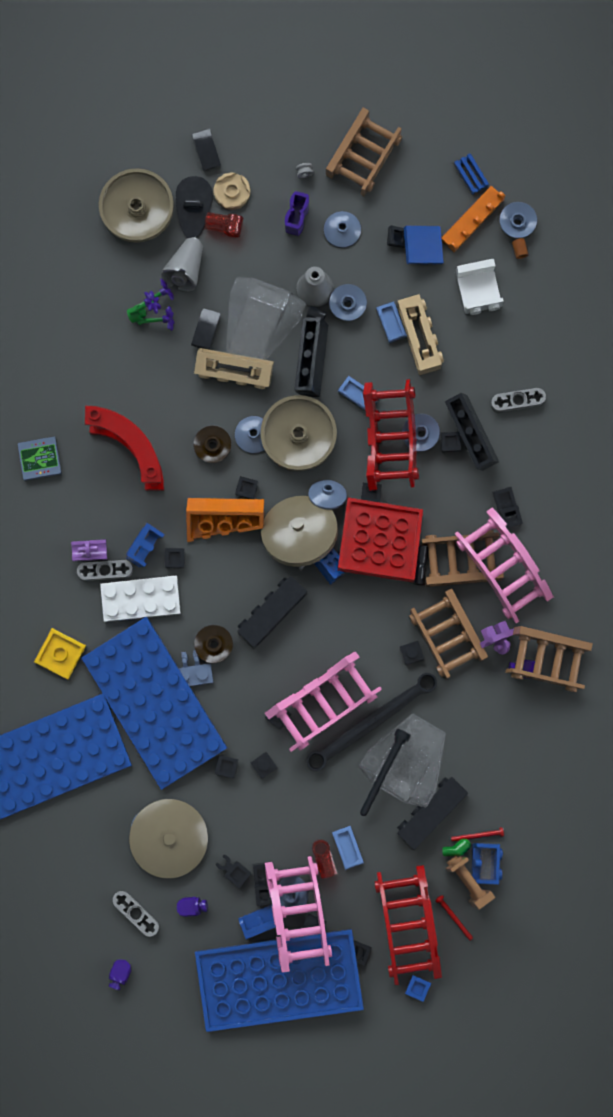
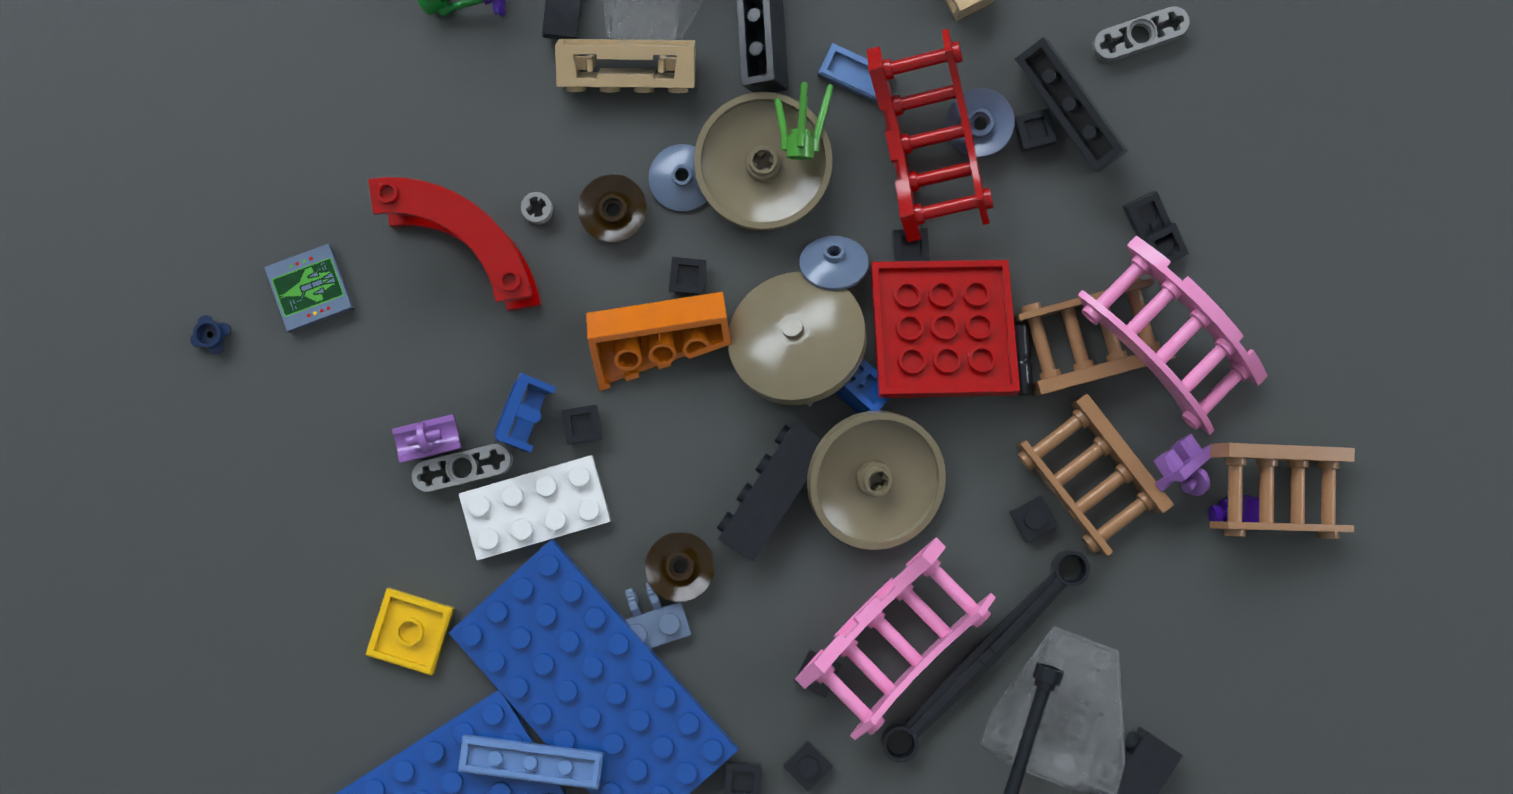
camera: 10 degrees left, 5 degrees up
(113, 733) = (531, 761): none -> medium blue tile
(166, 435) = (527, 206): none -> light grey bush
(320, 426) = (800, 143): none -> bright green plant
(328, 615) = (876, 480): none -> dark tan dish

